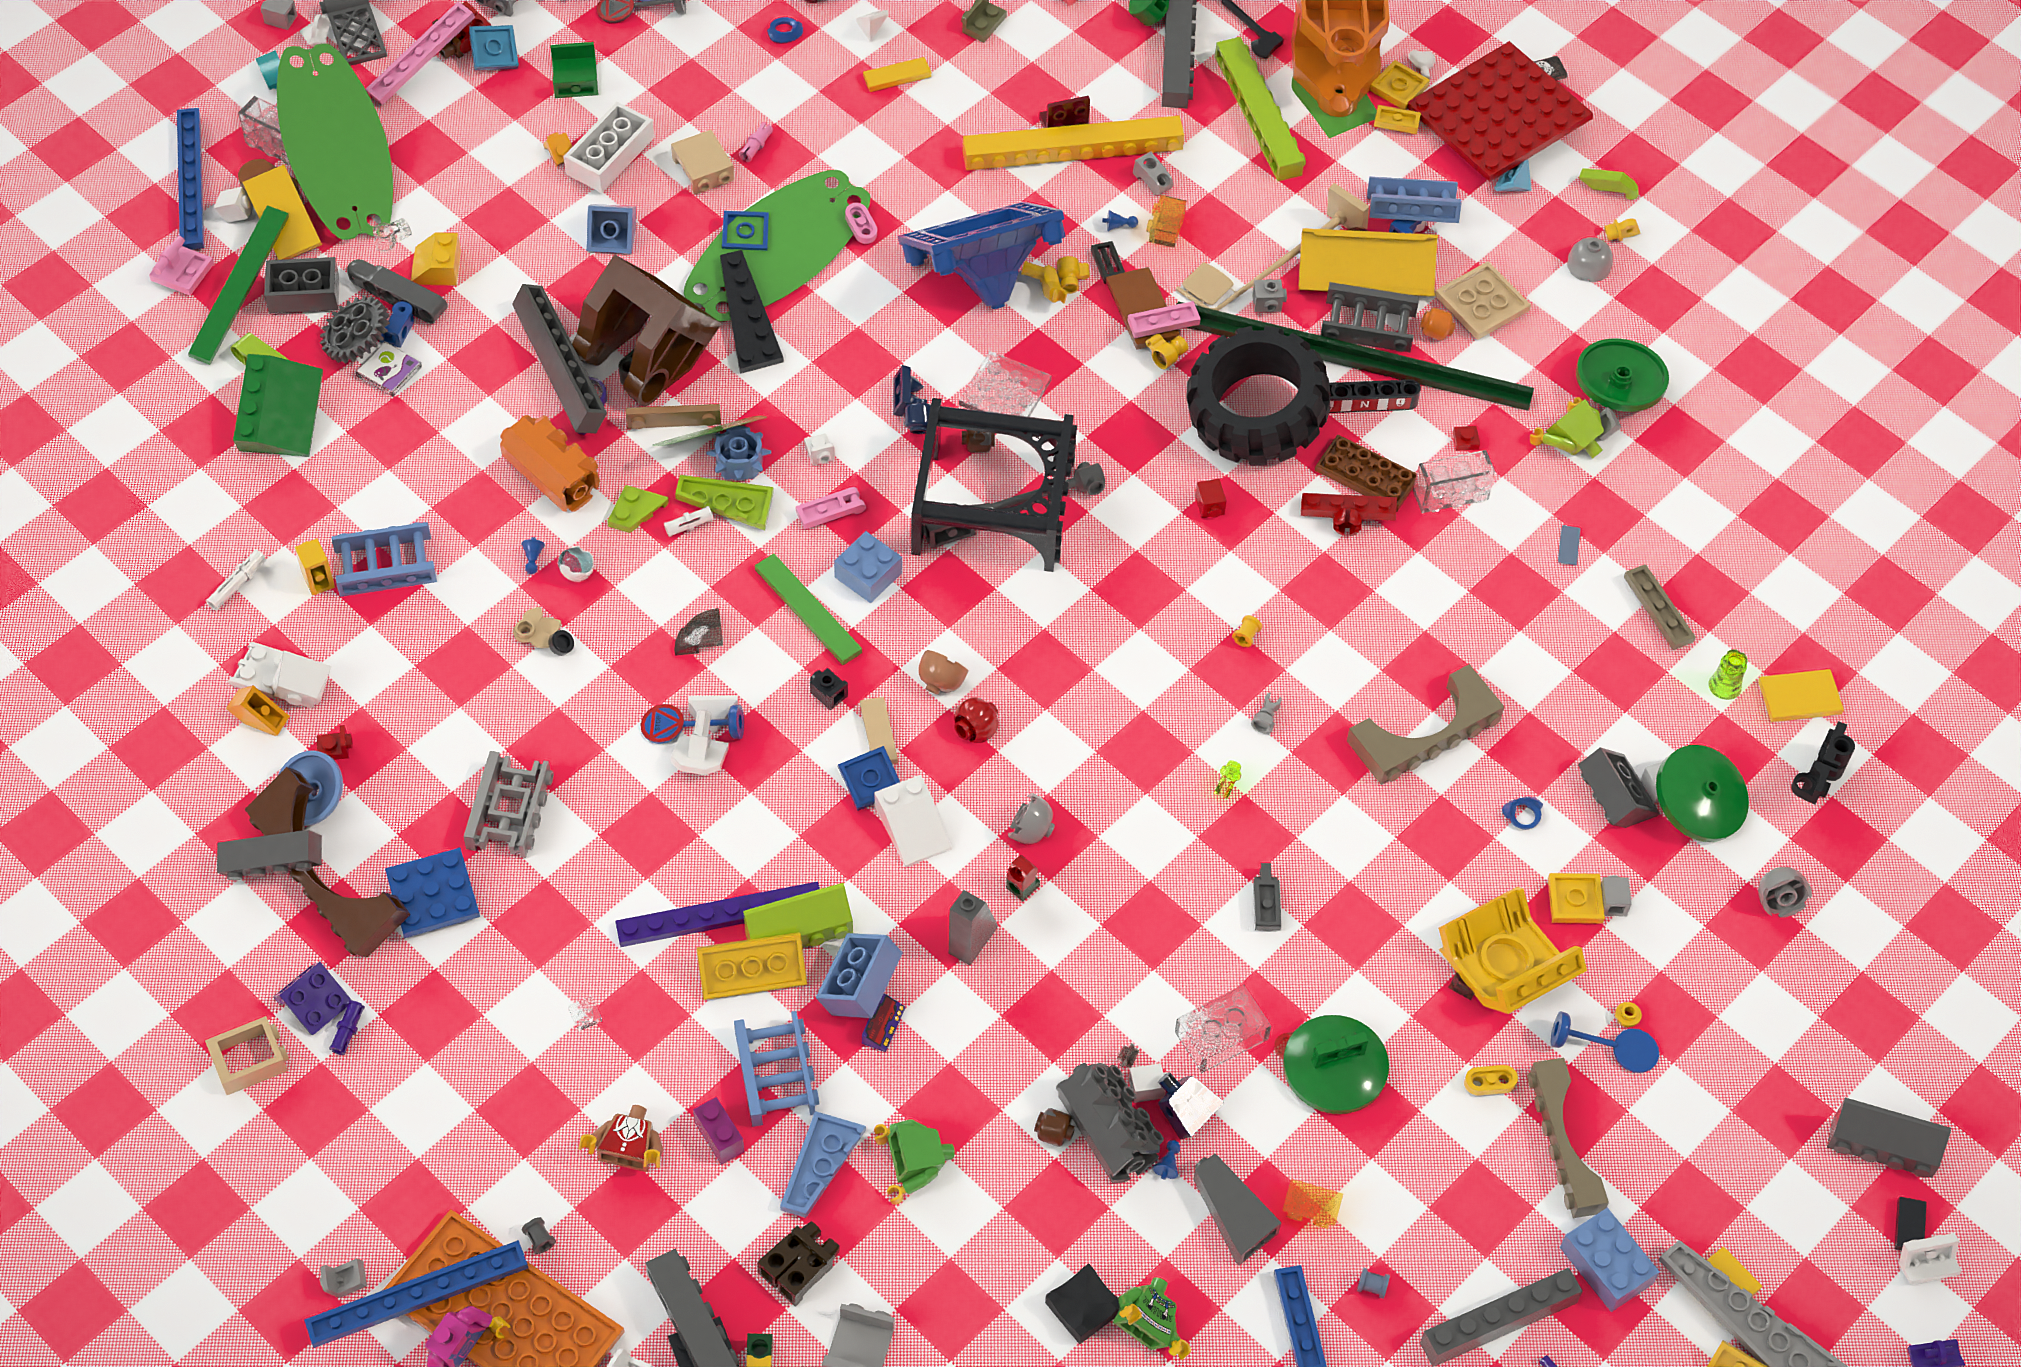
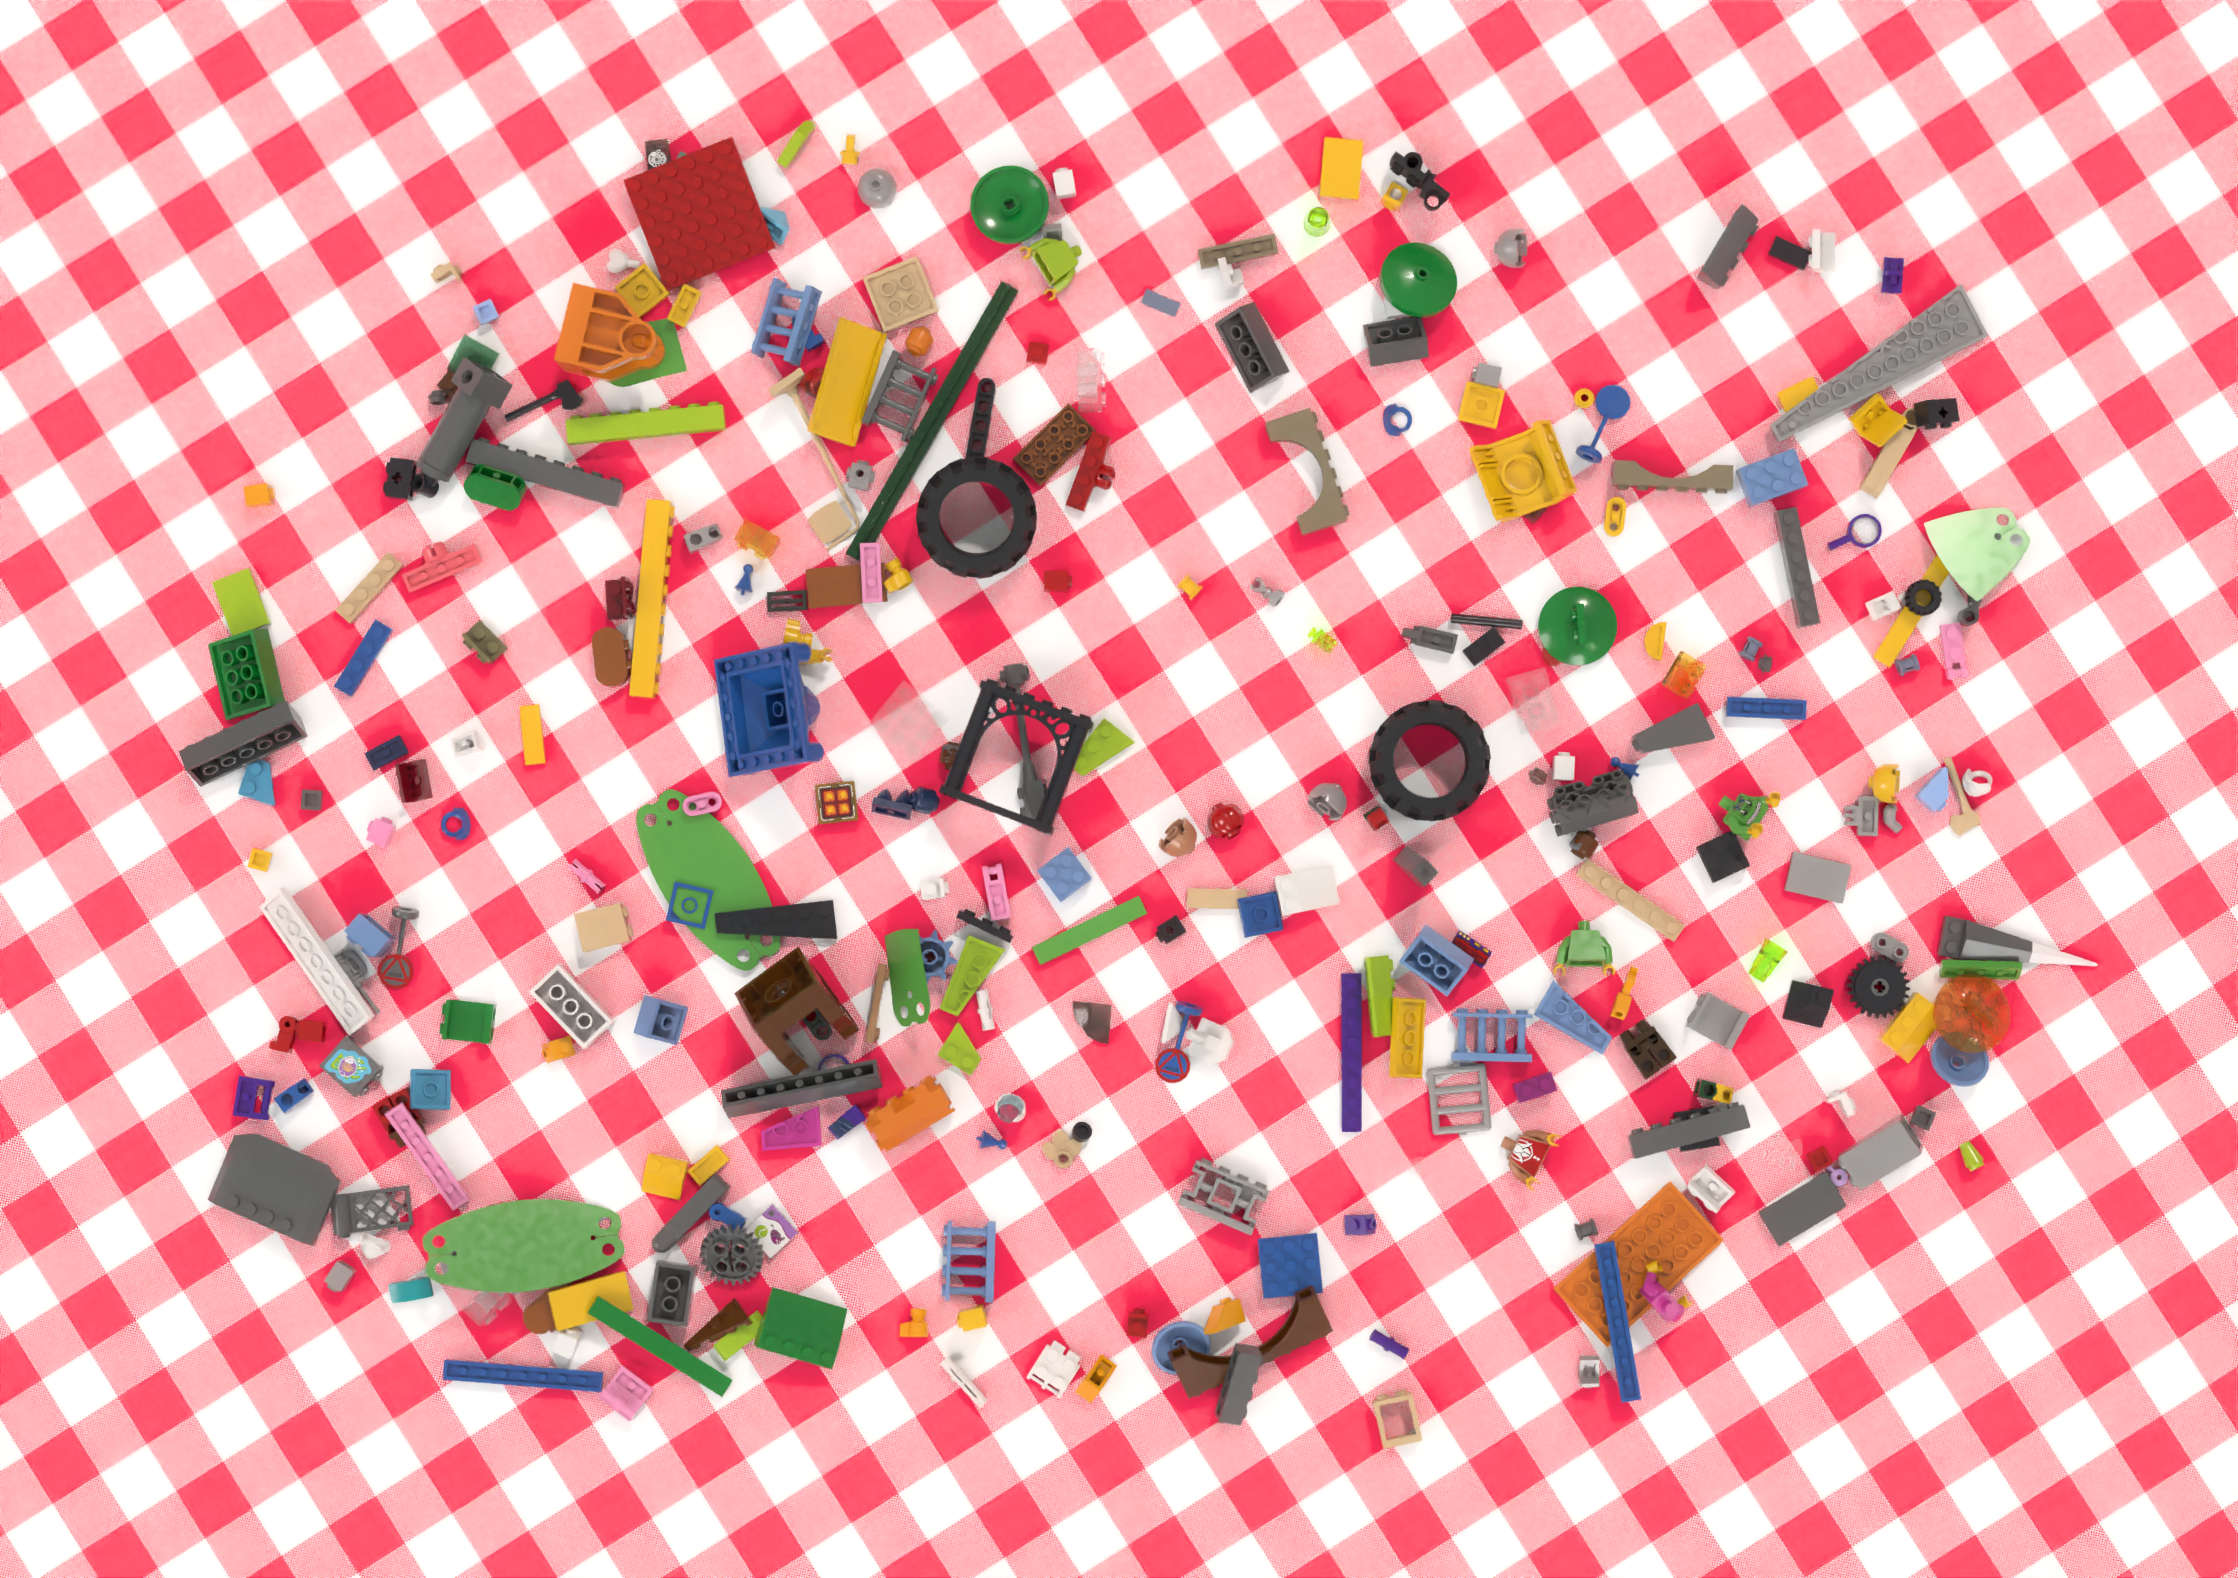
camera: 70 degrees left, 30 degrees up
(271, 336) = (720, 1325): none -> reddish brown wing
(297, 522) = (917, 1327): none -> light orange piece
(300, 680) = (1077, 1342): white torso -> none
(314, 997) = (1357, 1366): dark purple bracket -> none
(356, 829) = (1224, 1315): none -> light orange slope
(388, 235) = (621, 1200): clear piece -> none
(458, 301) = (708, 1165): none -> yellow tile
(499, 965) = (1360, 1224): none -> dark purple bracket
(507, 369) = (795, 1132): none -> dark pink wing
(523, 406) = (847, 1122): none -> leg
(680, 1080) = (1484, 1106): none -> light grey bar
(788, 502) = (985, 924): none -> black plate
(857, 1218) = (1623, 1000): none -> light orange piece
(895, 341) = (836, 802): none -> tile
(995, 1205) = (1630, 900): none -> tan plate
(1000, 115) = (611, 657): none -> dark orange brick
(1030, 579) = (1101, 746): none -> lime wing
(1121, 868) = (1462, 727): none -> black tyre
(1187, 1104) = (1590, 743): torso -> none
(1275, 963) = (1483, 646): none -> black plate
(1308, 959) = (1486, 621): none -> black piece
(1347, 1161) = (1654, 640): none -> yellow plate
(1359, 1307) = (1765, 663): none -> dark grey plate
(1554, 641) = (1252, 347): none -> dark grey slope
(1629, 595) = (1230, 277): none -> white bracket
(1666, 424) = (1064, 183): none -> white brick
(1783, 751) = (1391, 203): none -> yellow bracket

